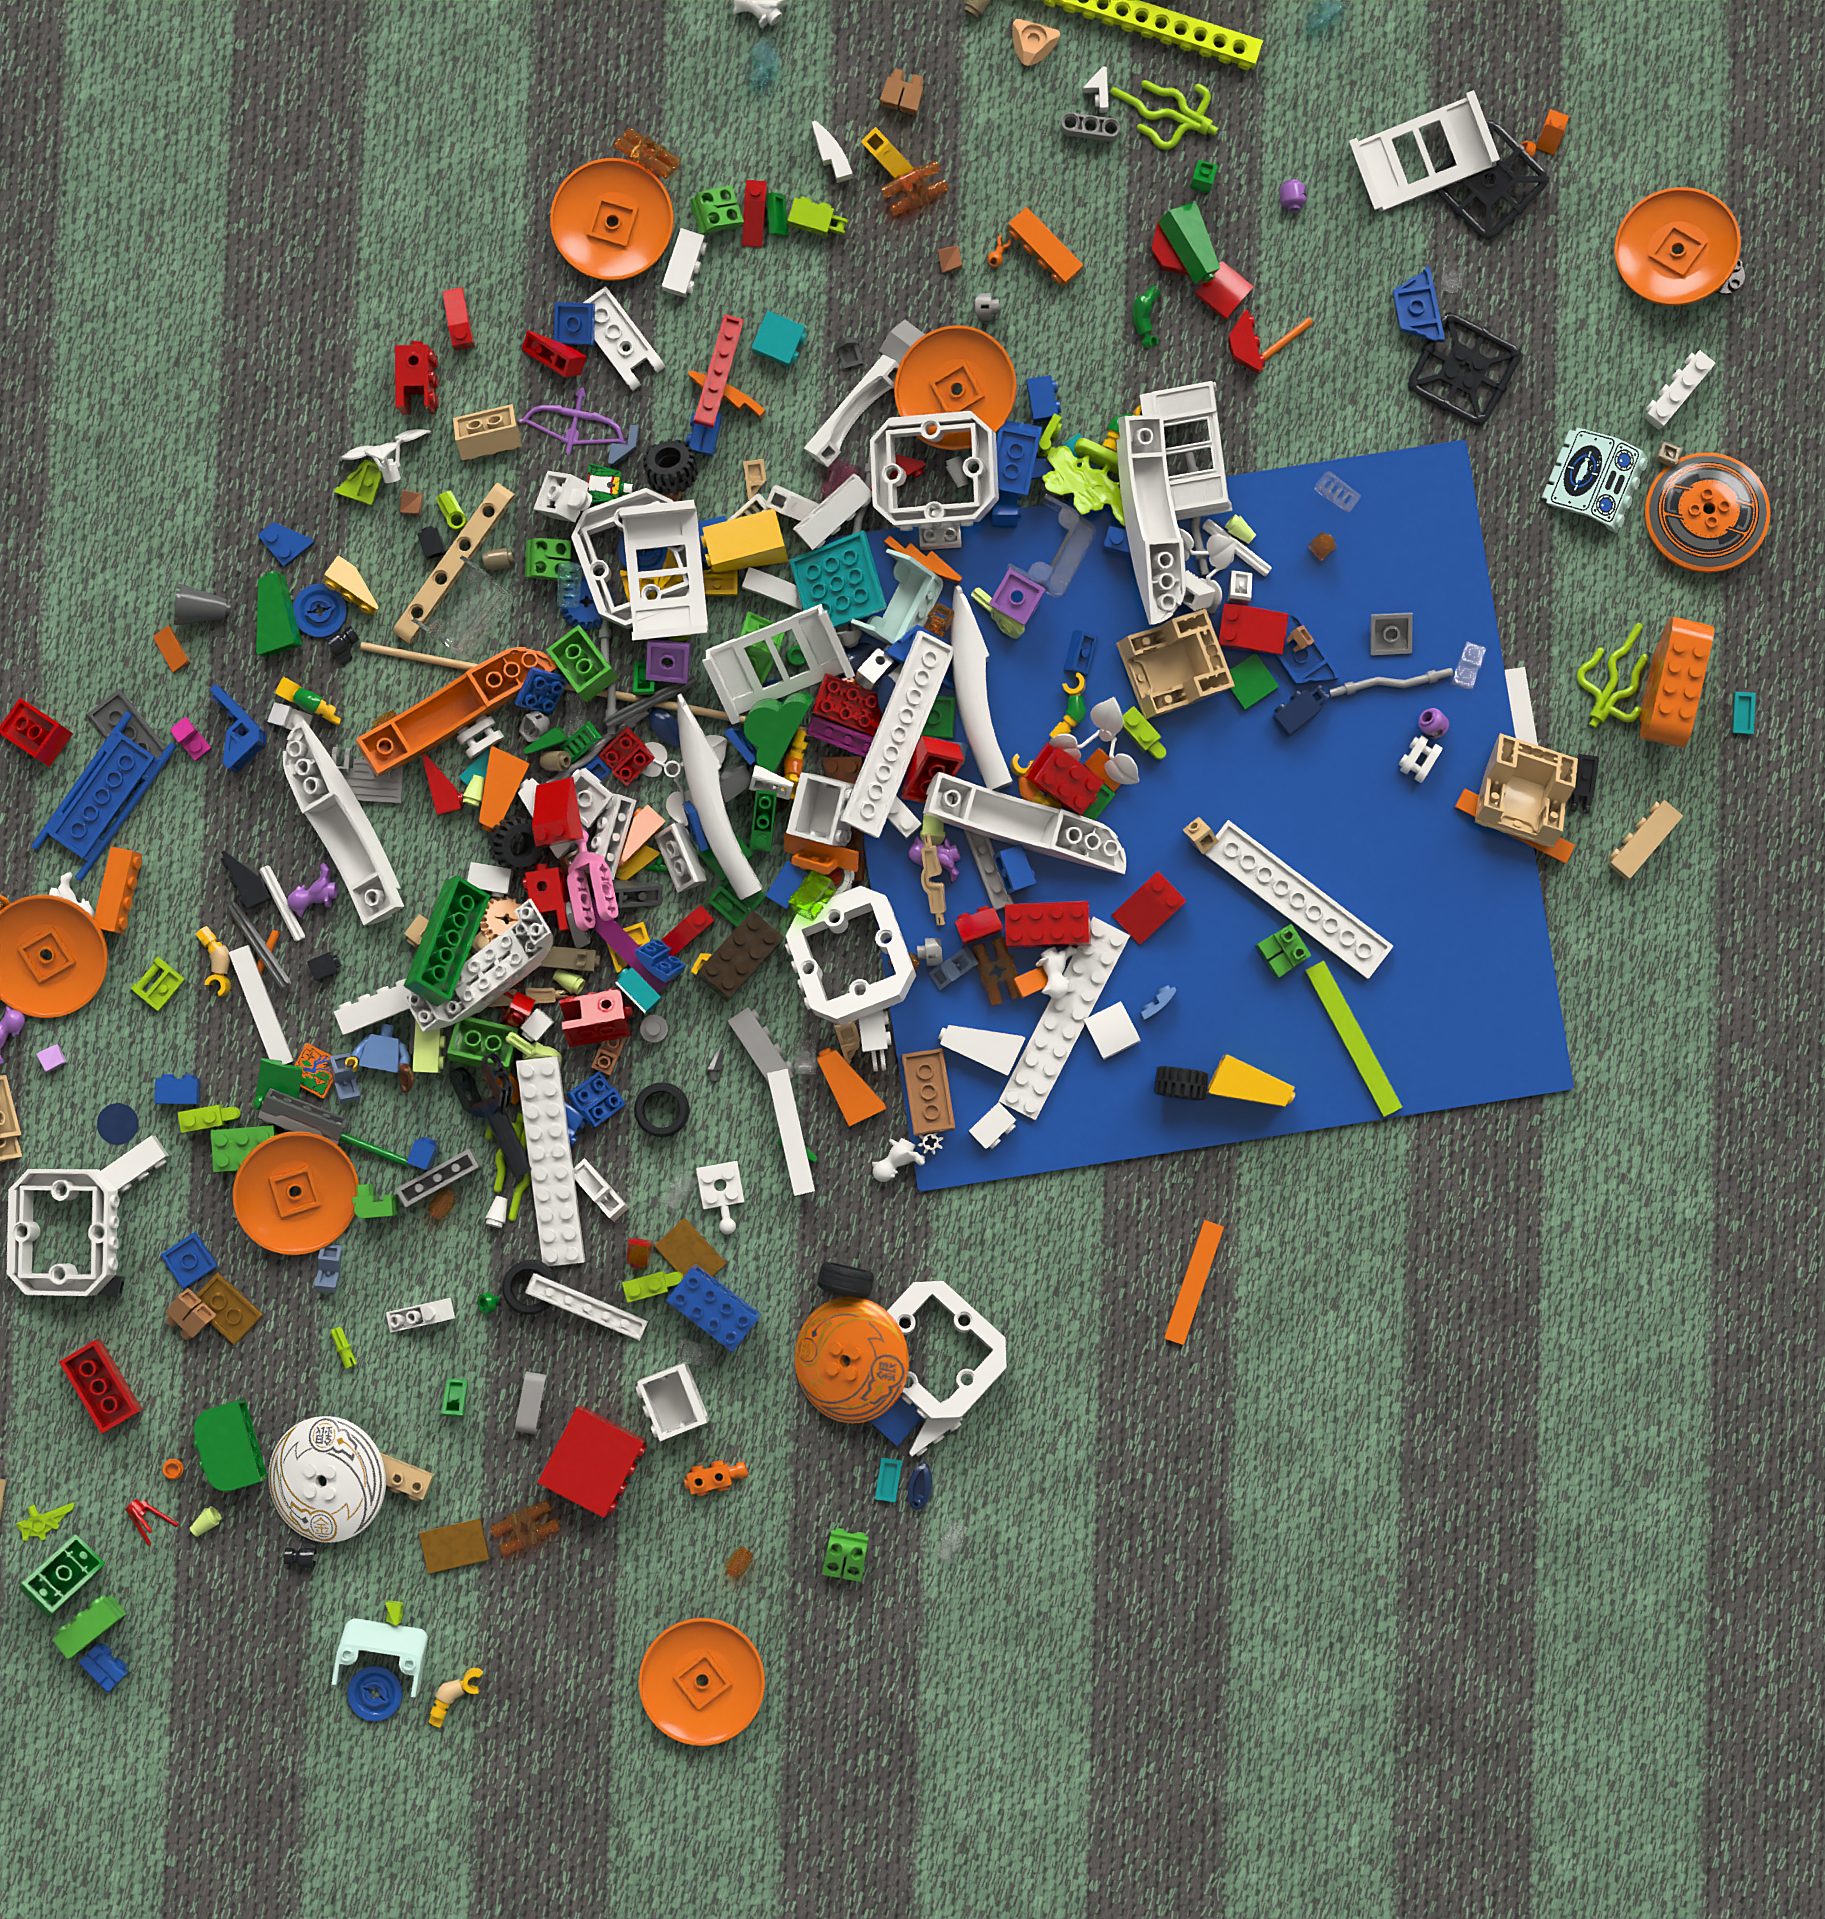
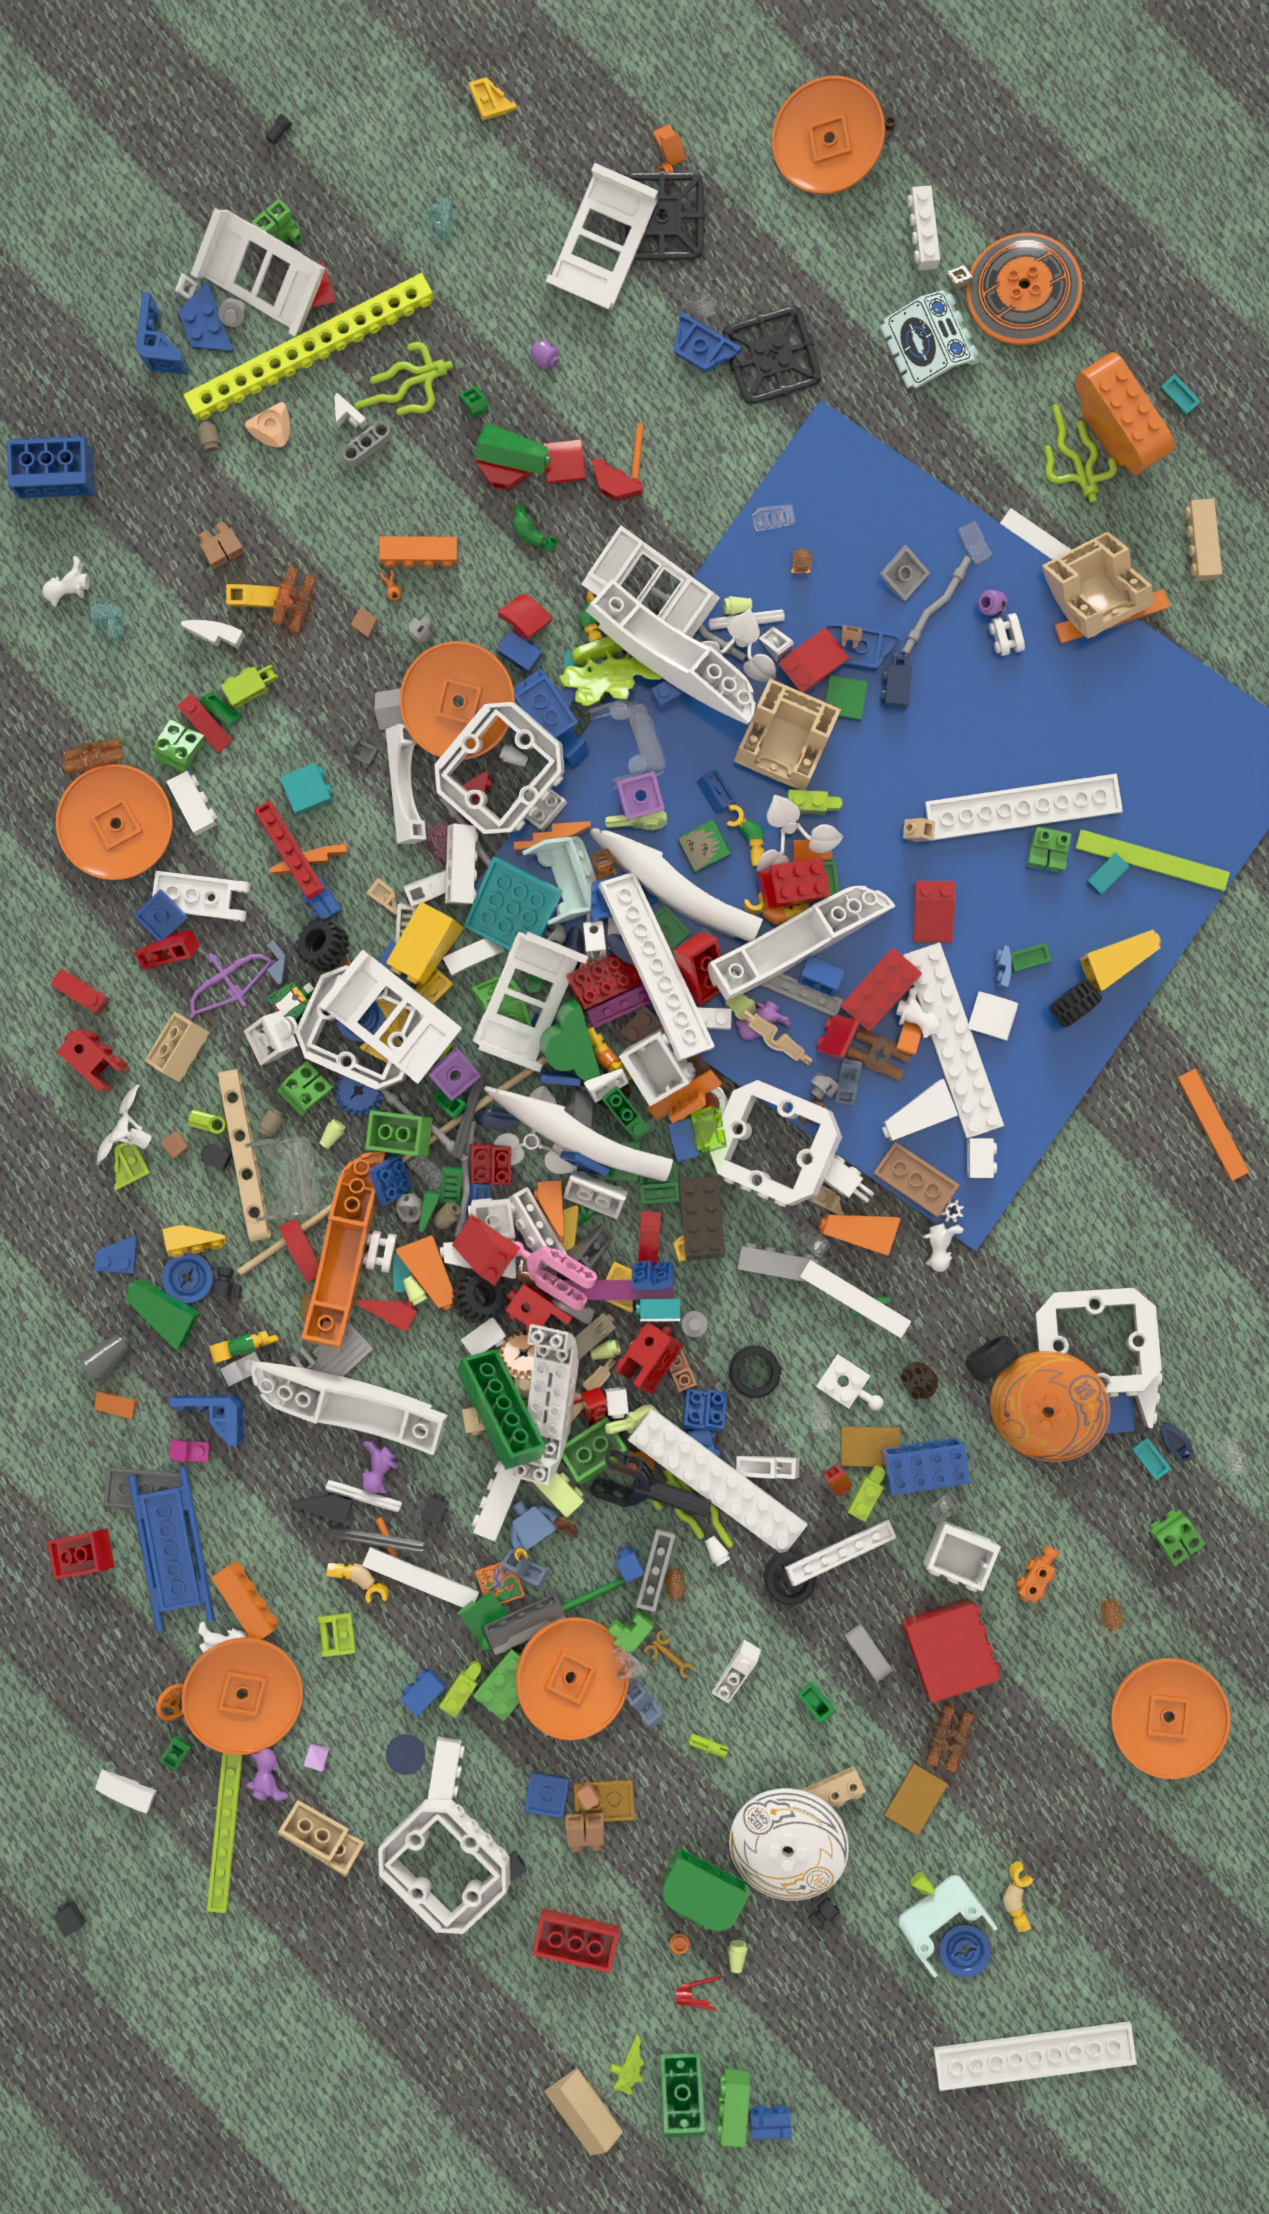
camera: 50 degrees left, 0 degrees up
(218, 1290) = (588, 1795): none -> nougat slope
(345, 1822) = (1034, 2056): none -> white plate
(347, 1232) = (631, 1667): none -> clear slope
(384, 1237) = (658, 1644): none -> pearl gold bar
(423, 674) = (300, 1249): none -> red slope
(487, 1302) = (772, 1617): green tile -> none
(534, 613) = (332, 1133): none -> yellowish green cone
(562, 584) = (326, 1089): clear light blue slope -> none
(776, 1242) = (916, 1372): none -> dark brown plate
(1029, 683) = (704, 845): none -> slope
(1052, 431) = (548, 665): lime plate -> none
(1074, 376) = (525, 616): none -> red slope
(1186, 1016) = (1030, 957): none -> green tile
(1197, 593) = (756, 673): white brick -> none
(1310, 1013) = (1108, 873): none -> teal tile
(1585, 781) = (1124, 535): black hinge -> none

